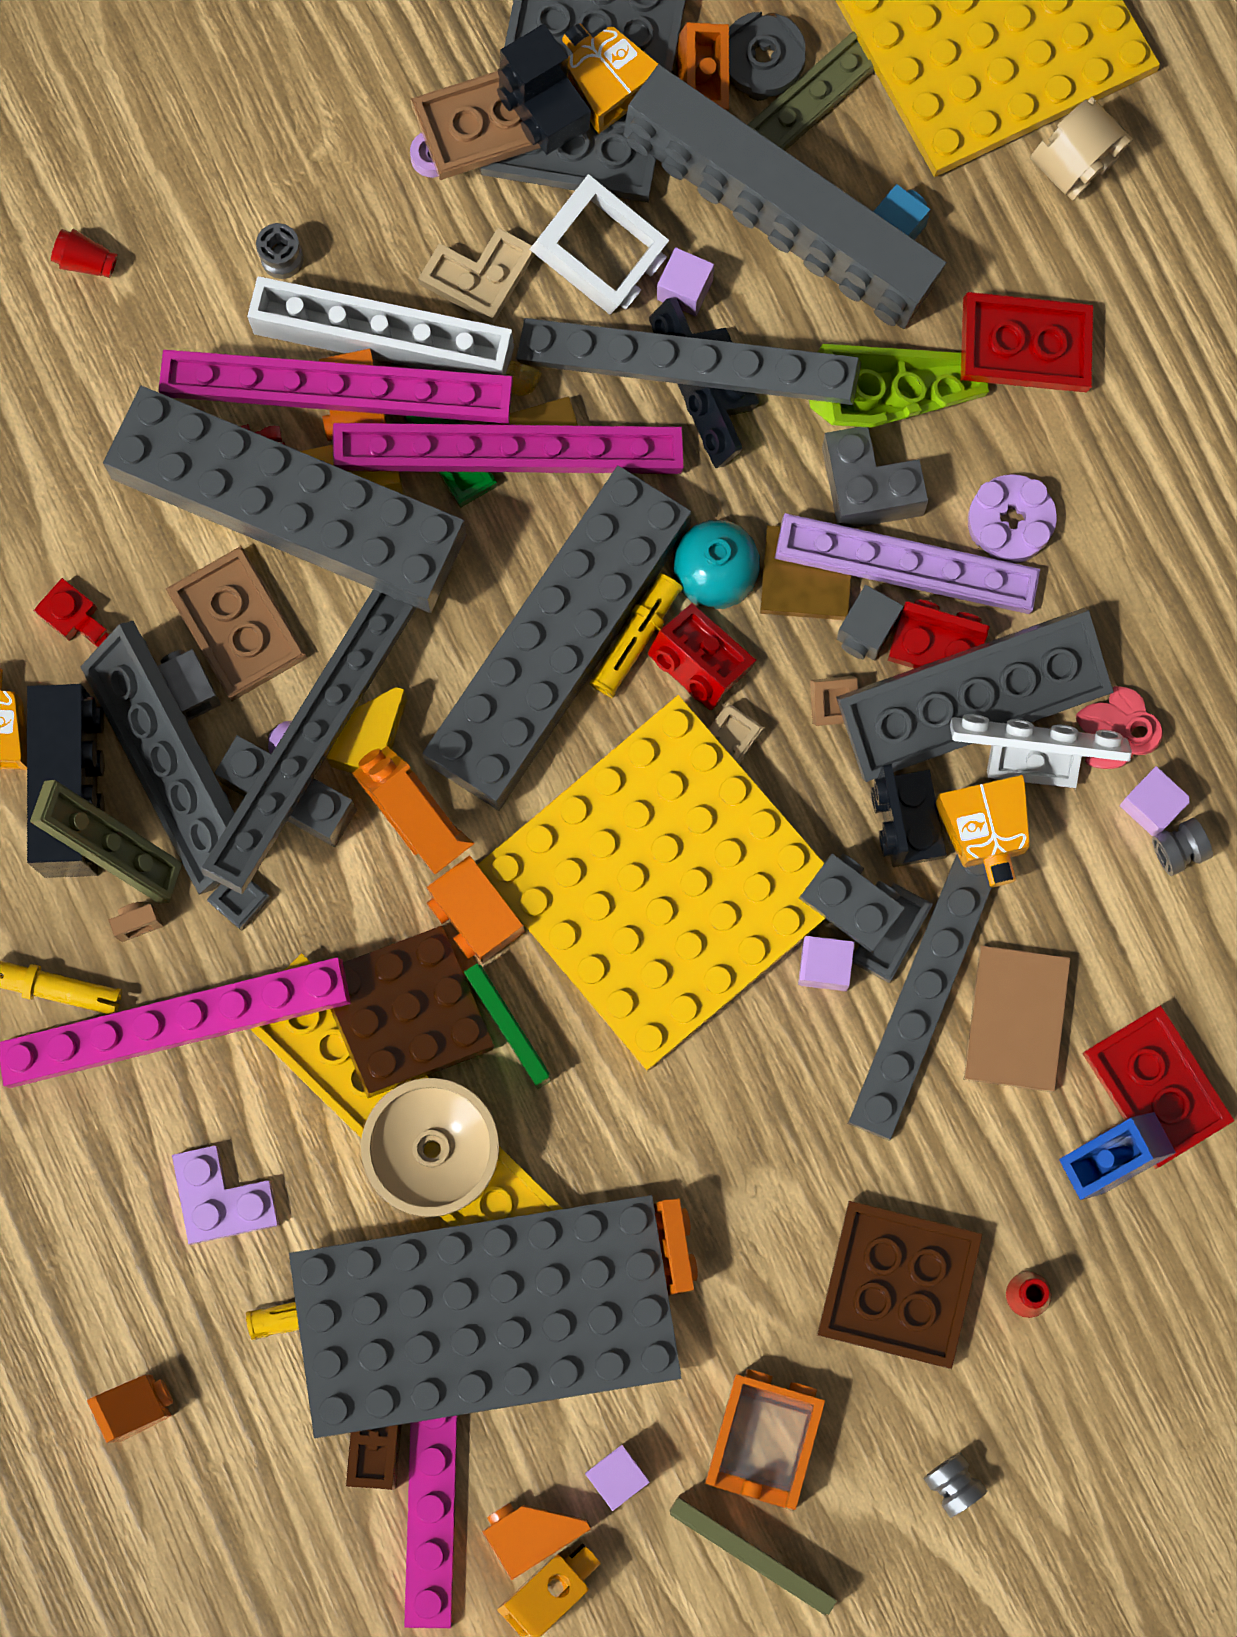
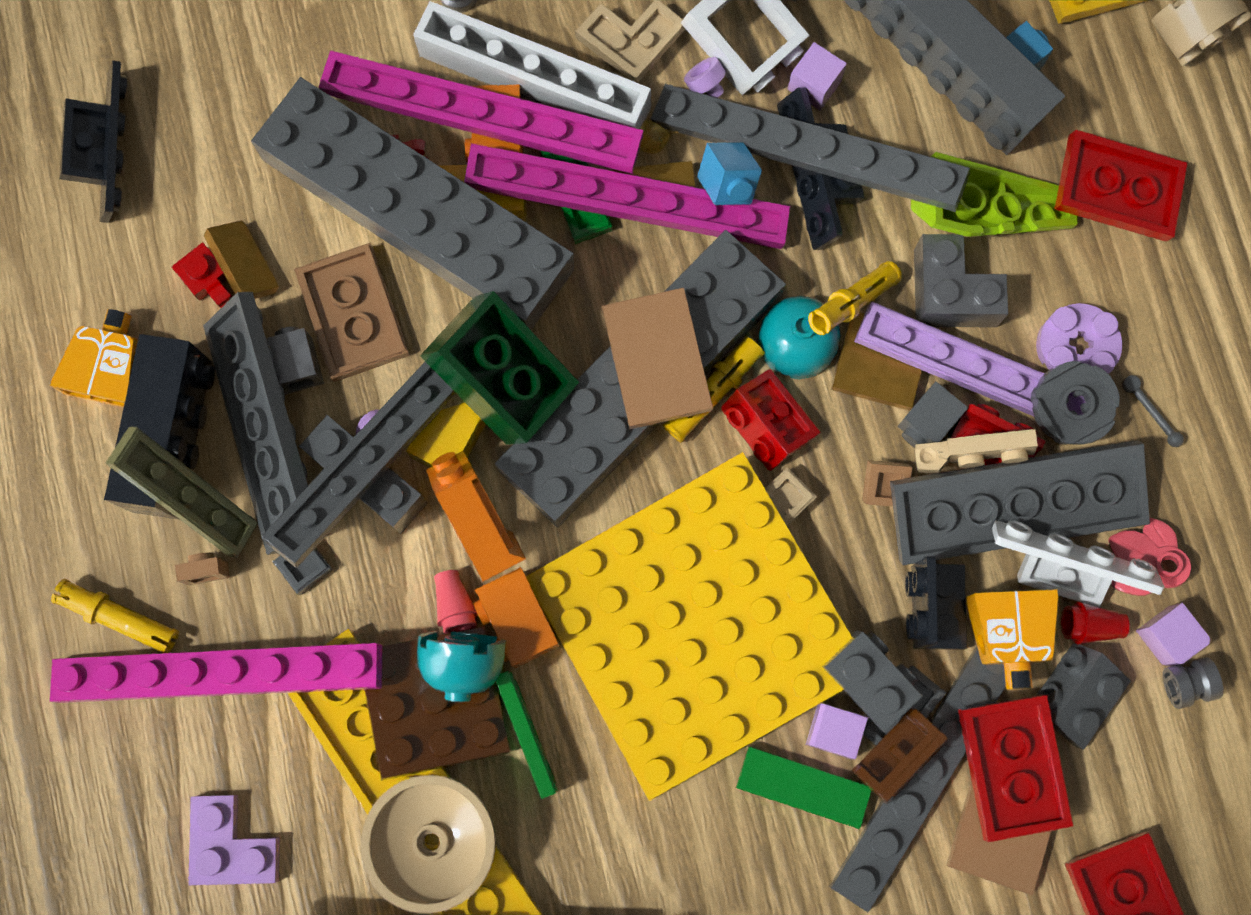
camera: 10 degrees right, 0 degrees up
(107, 589) = (241, 259): none -> pearl gold tile
(405, 907) = (453, 603): none -> coral cone
(410, 653) = (500, 368): none -> dark green brick
(427, 962) = (460, 663): none -> teal cylinder
(567, 303) = (706, 77): none -> lavender tile
(570, 613) = (657, 358): none -> medium nougat tile
(610, 404) = (729, 173): none -> dark azure brick
(742, 536) = (830, 315): none -> yellow pin
(803, 1028) = (803, 787): none -> green tile
(895, 974) = (900, 755): none -> reddish brown hinge
(915, 648) = (972, 450): none -> tan hinge
(1012, 963) = (1015, 768): none -> red plate
(1039, 584) = (1098, 410): none -> dark grey plate
(1070, 880) = (1082, 693): none -> dark grey bracket
(1071, 805) = (1091, 623): none -> red cone
(1074, 551) = (1132, 385): none -> dark grey hinge

